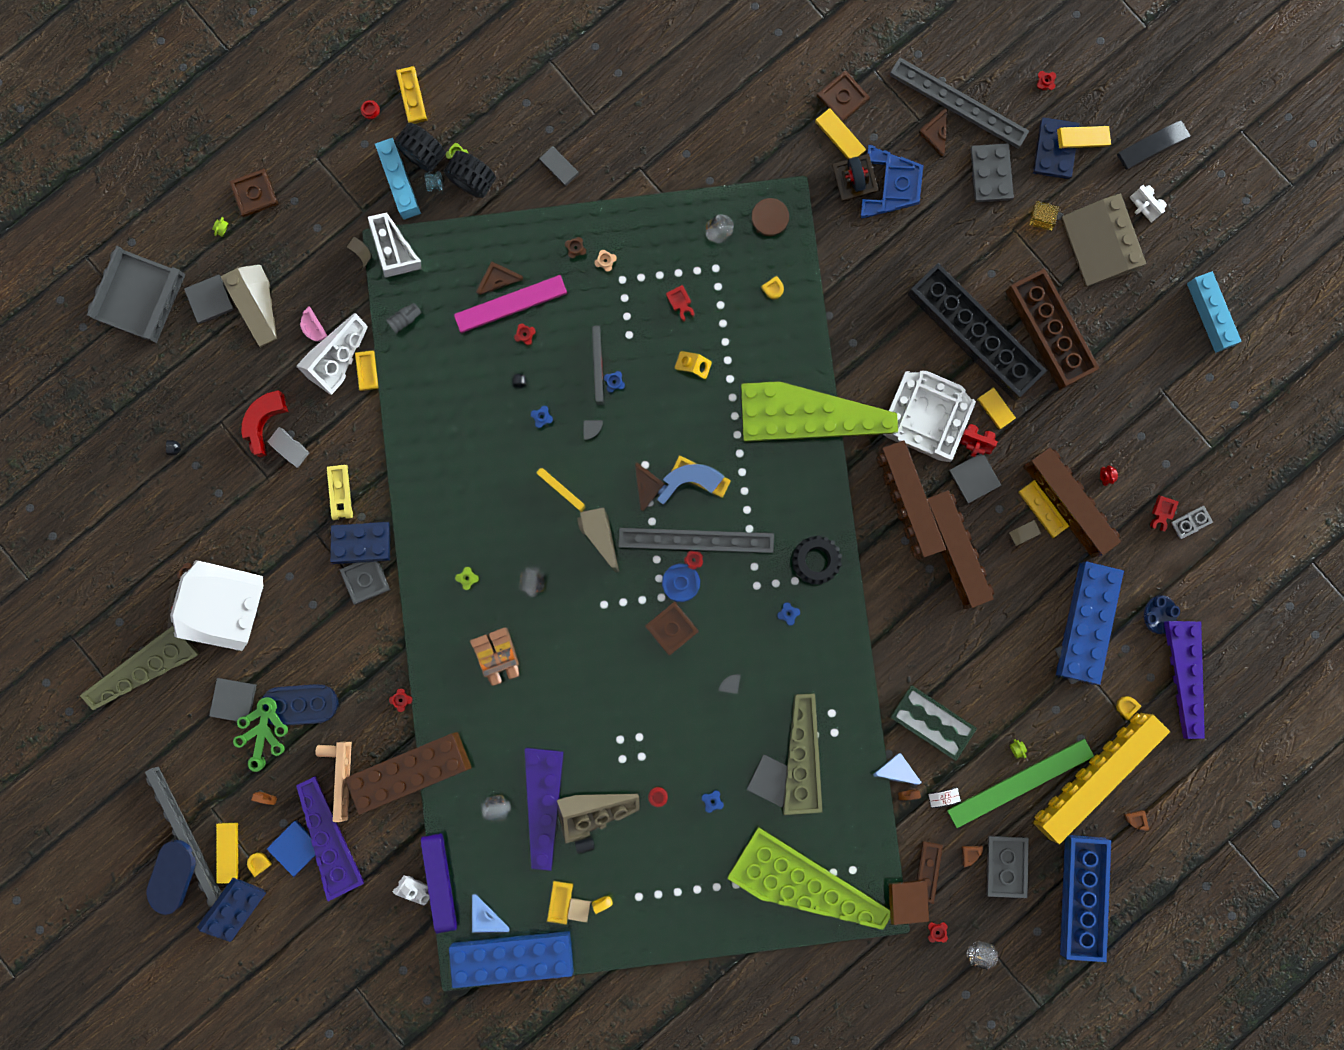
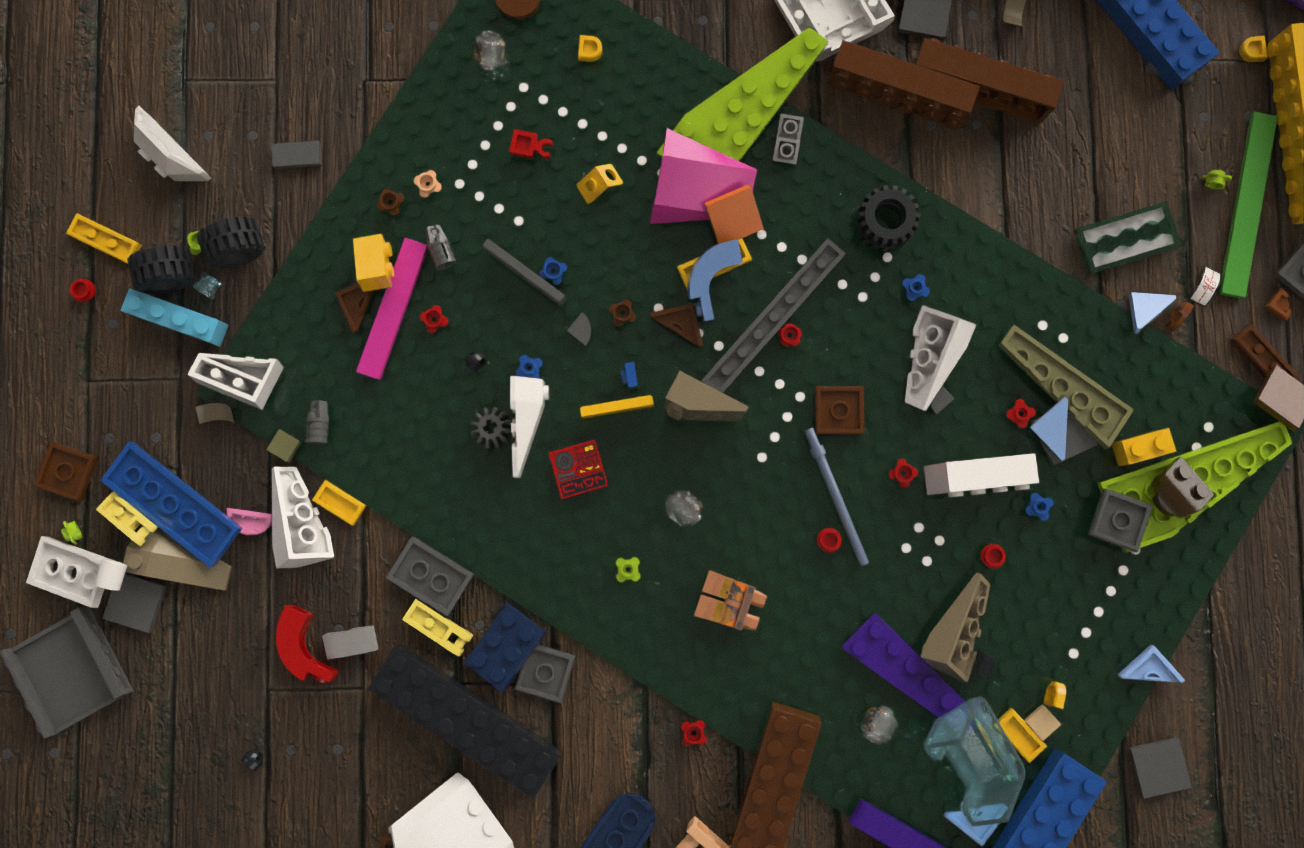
camera: 50 degrees left, 0 degrees up
(205, 261) = (92, 575): none -> white hinge
(254, 252) = (126, 518): none -> light yellow plate
(284, 271) = (171, 504): none -> blue plate
(297, 555) = (465, 720): none -> black brick
(366, 462) = (430, 576): none -> dark grey plate
(373, 309) = (284, 445): none -> olive tile
(486, 417) = (483, 424): none -> dark grey gear
(494, 85) = (164, 150): none -> white wedge
(504, 498) = (578, 469): none -> tile
(517, 434) = (527, 403): none -> white wedge
(525, 886) = (981, 758): none -> clear light blue windscreen
(527, 269) = (372, 262): none -> yellow brick
(571, 300) = (439, 248): none -> dark grey hinge
(585, 687) = (829, 540): none -> red plate
(586, 482) = (629, 376): none -> blue plate
(611, 1007) = (1159, 767): none -> dark grey tile
(623, 450) = (624, 306): none -> reddish brown plate
(634, 635) = (817, 451): none -> sand blue bar
(669, 702) = (910, 473): none -> red plate
(669, 952) = (1151, 666): none -> light blue tile
(680, 582) = (801, 366): blue tile -> none
(703, 749) = (981, 475): none -> white wedge
(739, 463) = (734, 215): none -> orange tile
(742, 426) = (693, 176): none -> dark pink wedge
(743, 858) = (1120, 520): none -> dark grey tile
(757, 743) = (1013, 413): none -> red plate
(759, 659) = (937, 348): none -> white wedge
(767, 769) = (1053, 428): none -> light blue tile
(792, 880) = (1180, 490): none -> dark brown slope
(803, 837) = (1143, 447): none -> yellow brick
(818, 458) = (788, 139): none -> light grey slope

